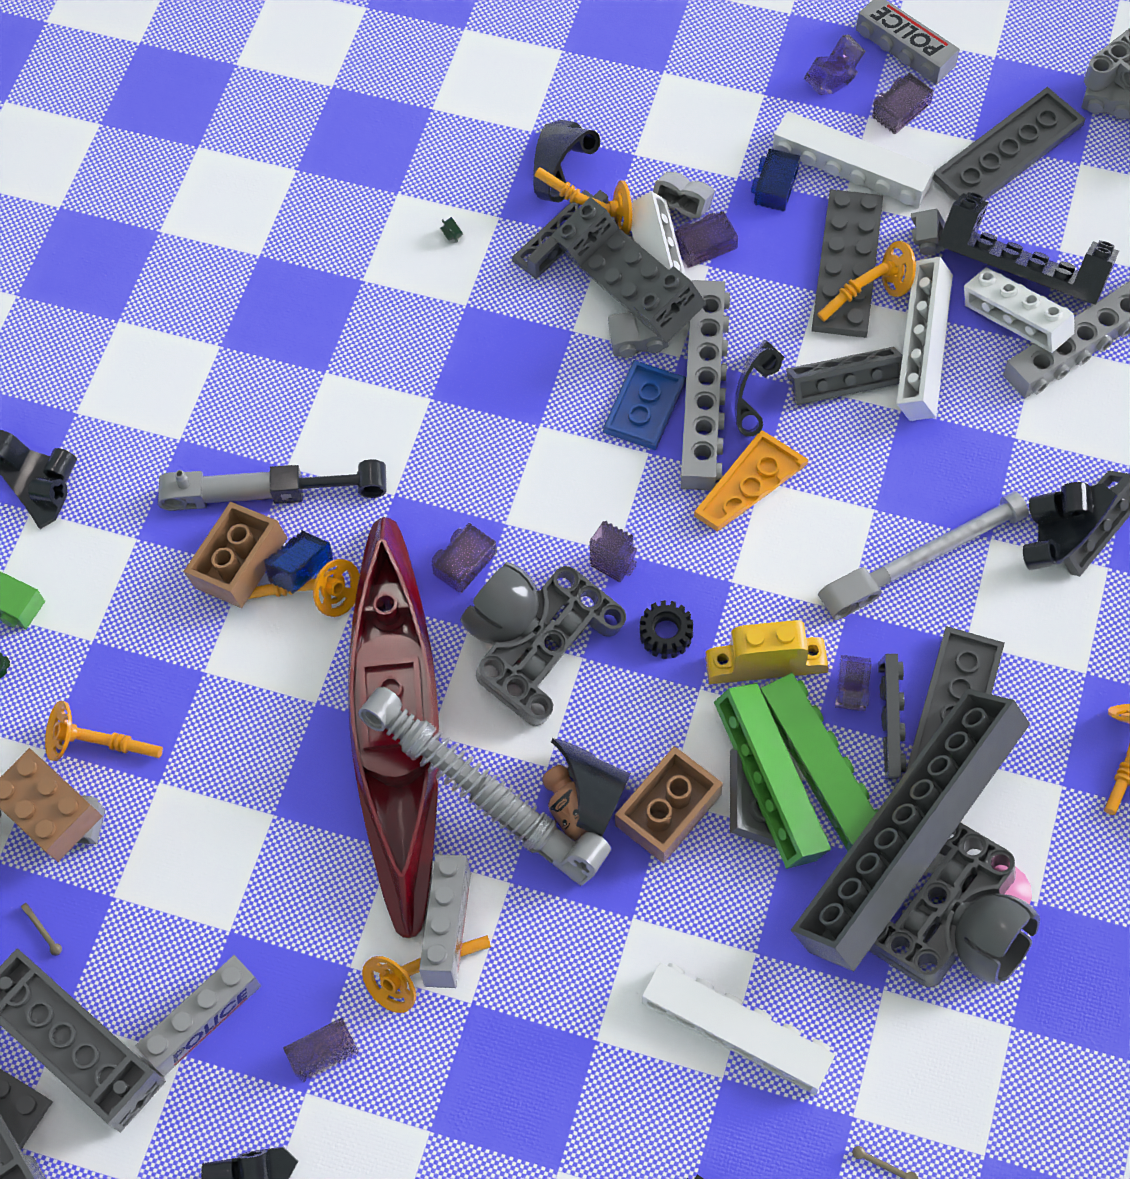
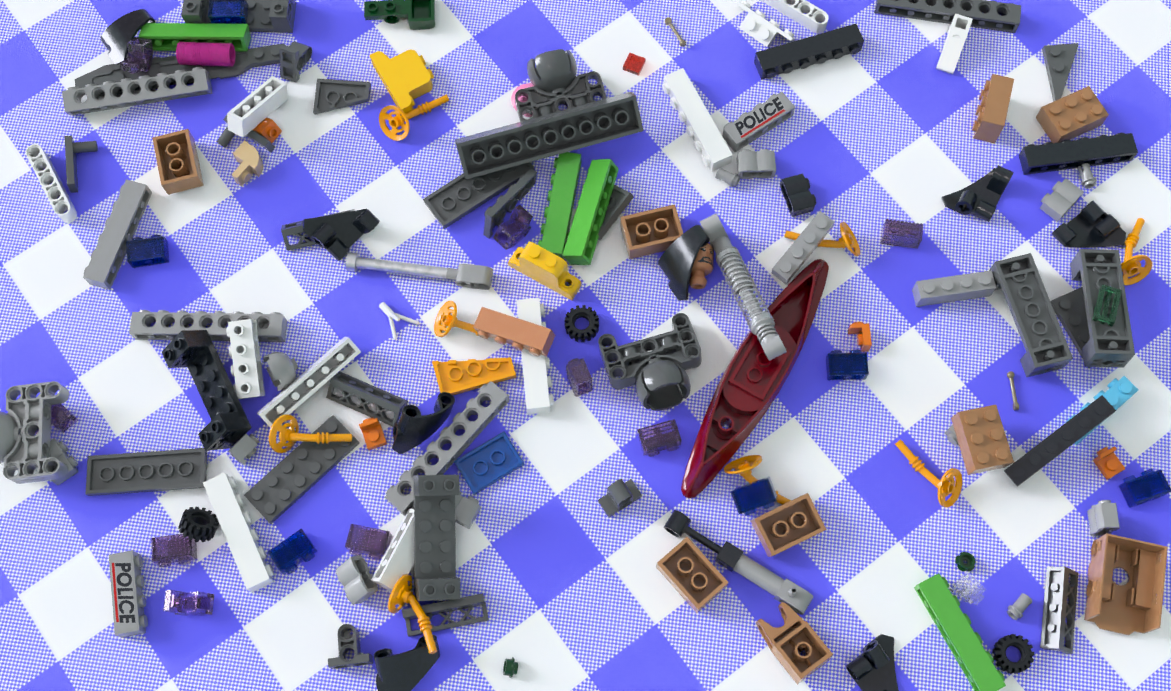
camera: 145 degrees left, 5 degrees up
(146, 438) = (793, 638): none -> medium nougat brick
(285, 805) = (847, 365): none -> clear blue brick
(285, 857) = (863, 335): none -> orange bracket
(314, 432) = (692, 574): none -> medium nougat brick
(460, 463) = (619, 496): none -> dark grey tile
(509, 1008) = (797, 194): none -> black brick
(601, 1016) = (756, 164): none -> light grey brick
(627, 968) = (731, 179): none -> light grey pin
(632, 137) = (345, 645): none -> dark grey tile
(646, 1089) = (758, 121): none -> light grey brick
(693, 550) = (534, 367): none -> white brick
(734, 542) = (514, 331): none -> nougat brick
(803, 345) = (373, 433): none -> orange bracket
(828, 518) = (444, 316): none -> light orange dish
(893, 116) = (198, 524): none -> black tyre
(901, 1061) = (634, 64): none -> clear red tile
(908, 483) = (387, 310): none -> white plant
(971, 327) = (281, 369): none -> light grey cylinder

